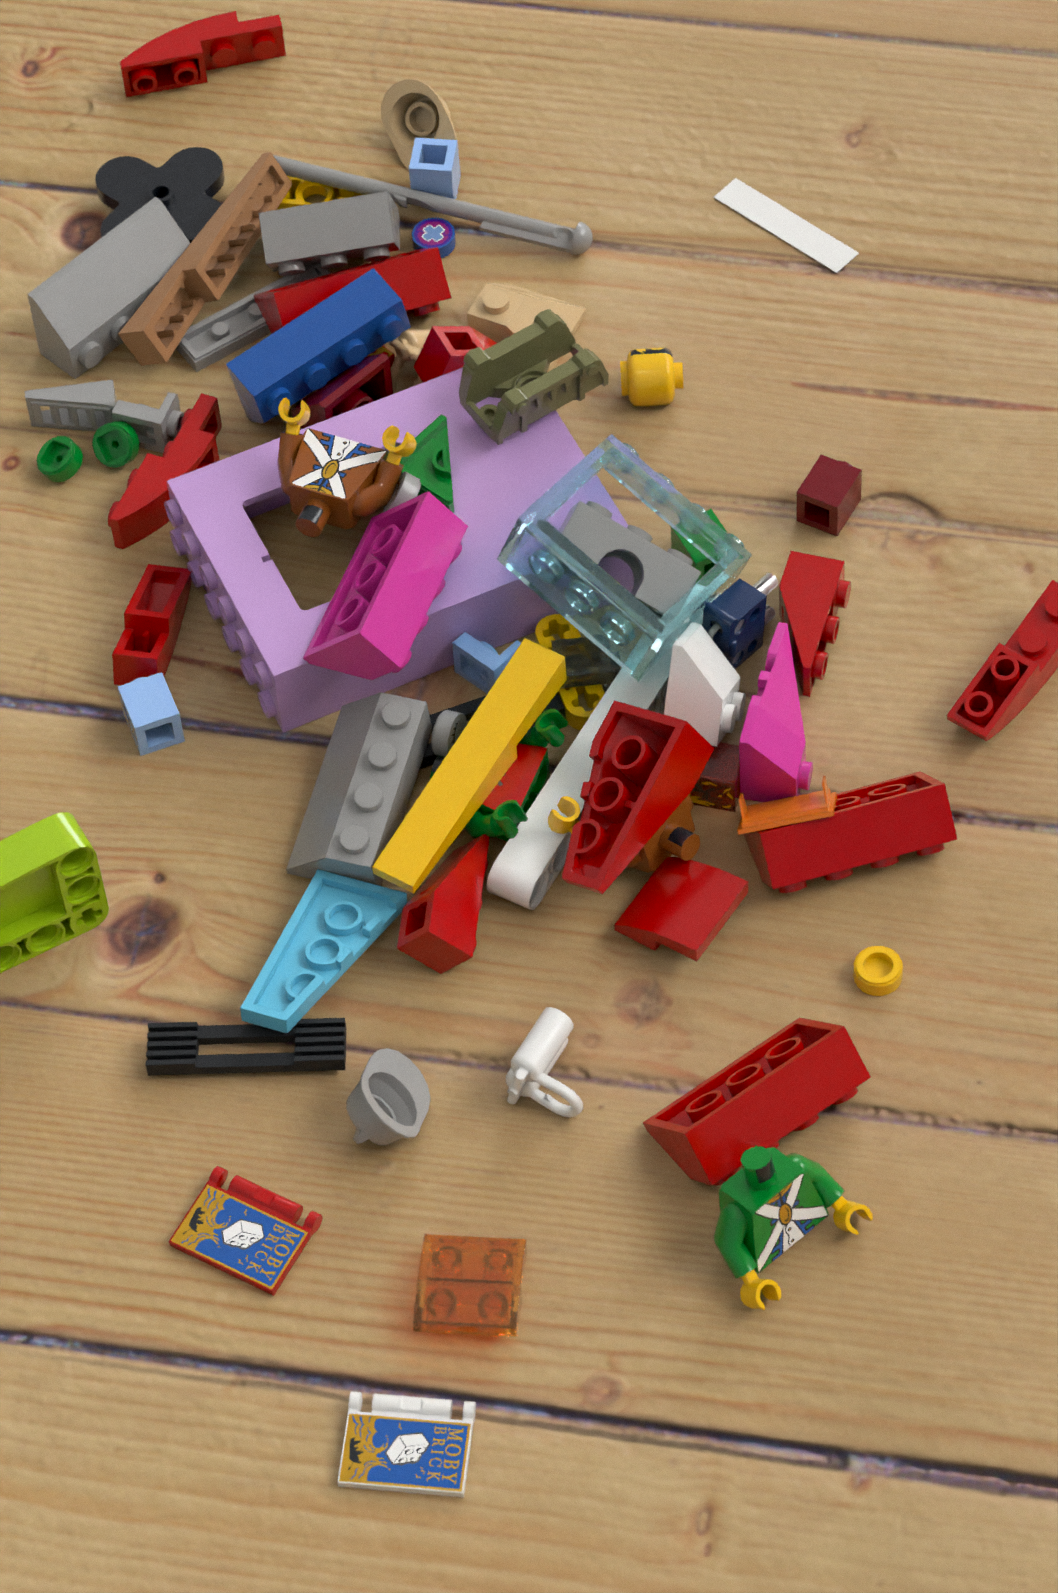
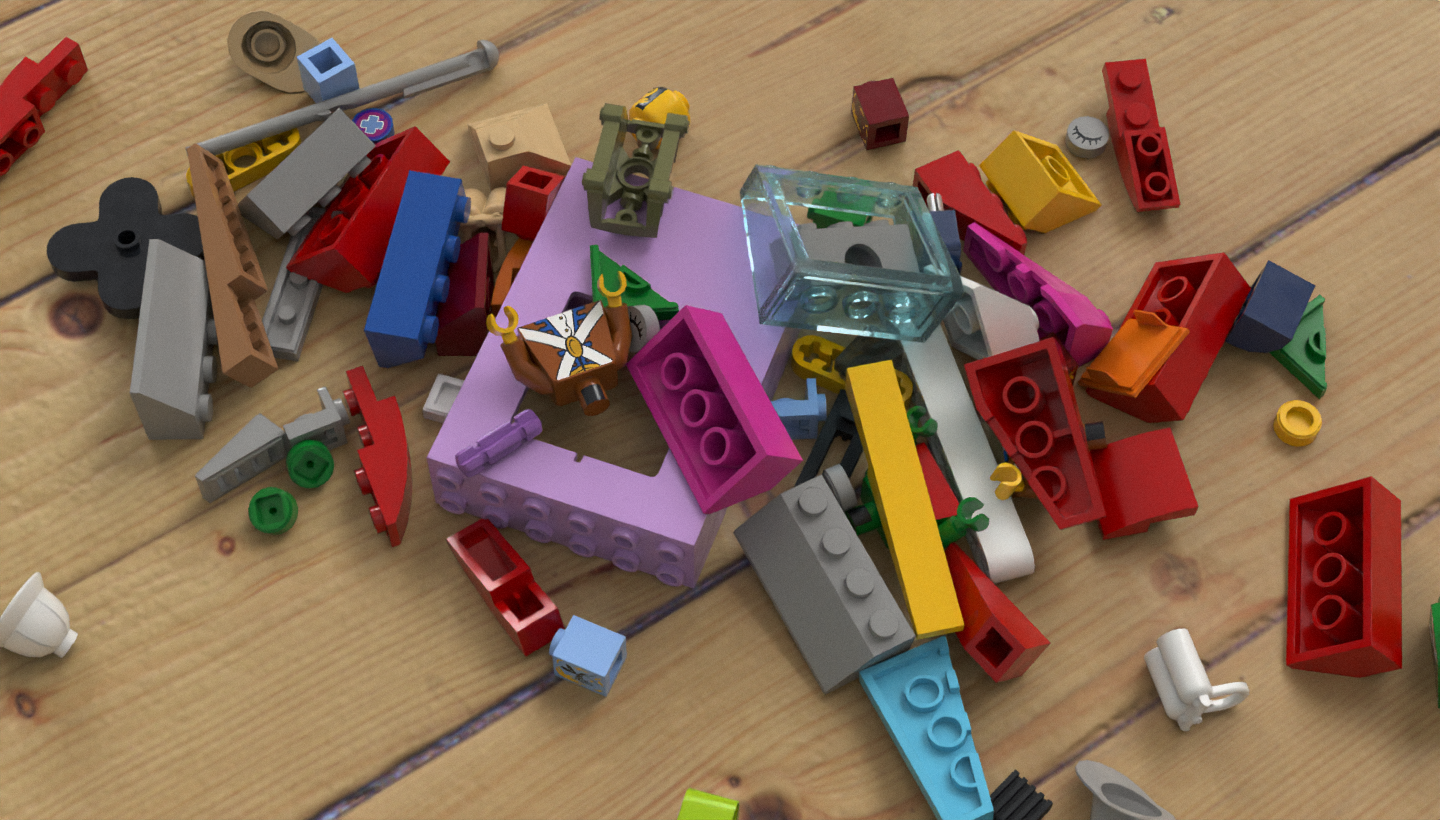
camera: 50 degrees left, 5 degrees up
(219, 504) = (498, 443): none -> medium lavender axle
(893, 638) = (1037, 183): none -> yellow slope
(950, 862) = (1270, 310): none -> dark blue brick
(961, 917) = (1307, 350): none -> green tile
(983, 634) = (1087, 137): none -> light grey tile

